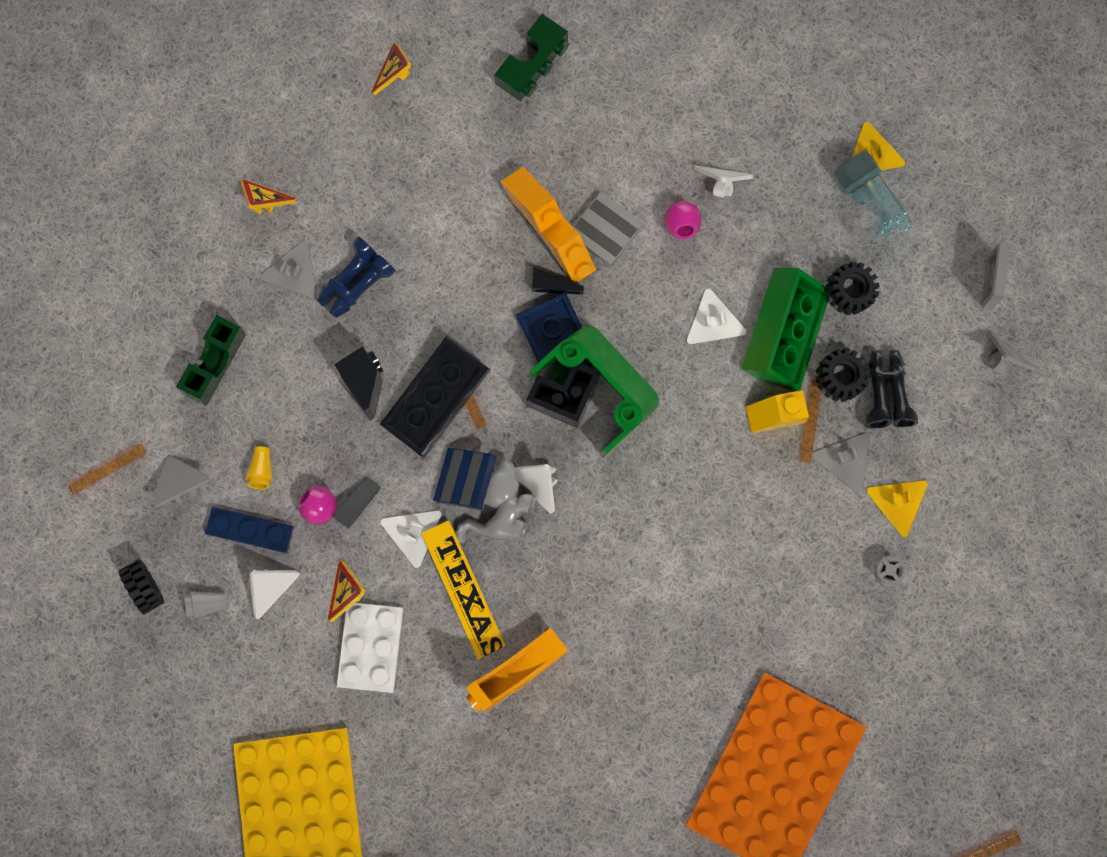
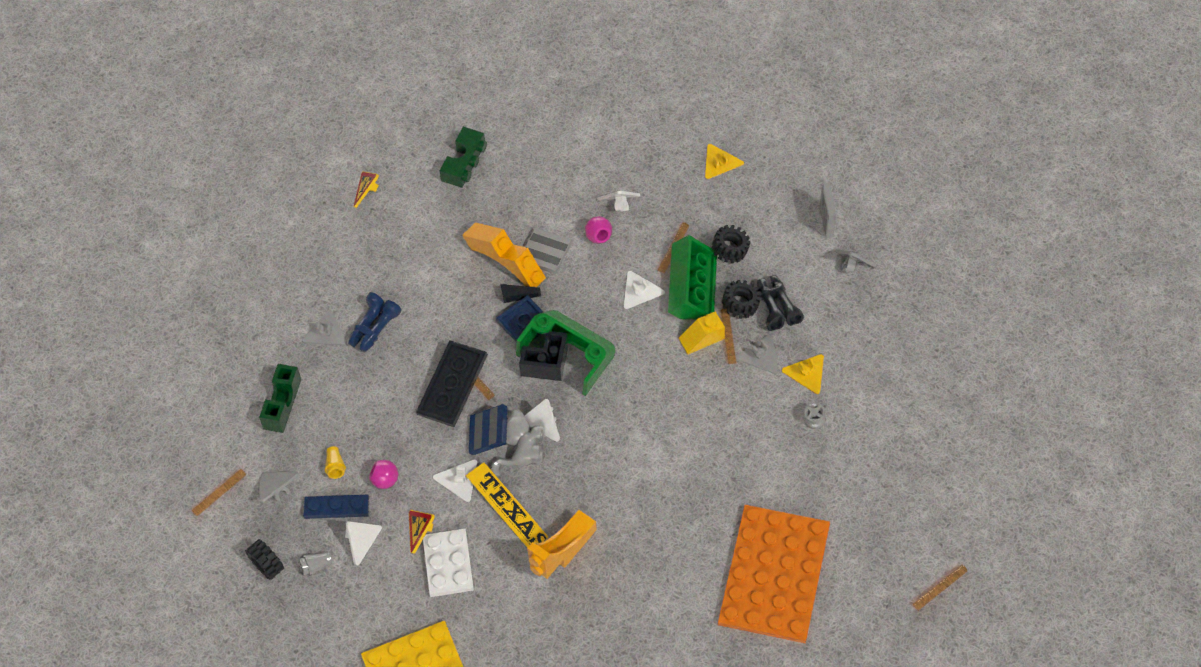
camera: 15 degrees left, 20 degrees down
(263, 197) = (293, 289): piece -> none
(356, 503) = (411, 469): black piece -> none
(363, 378) = (394, 382): black slope -> none
(781, 262) = (667, 258): none -> clear orange bar
(864, 170) = (714, 170): clear light blue piece -> none

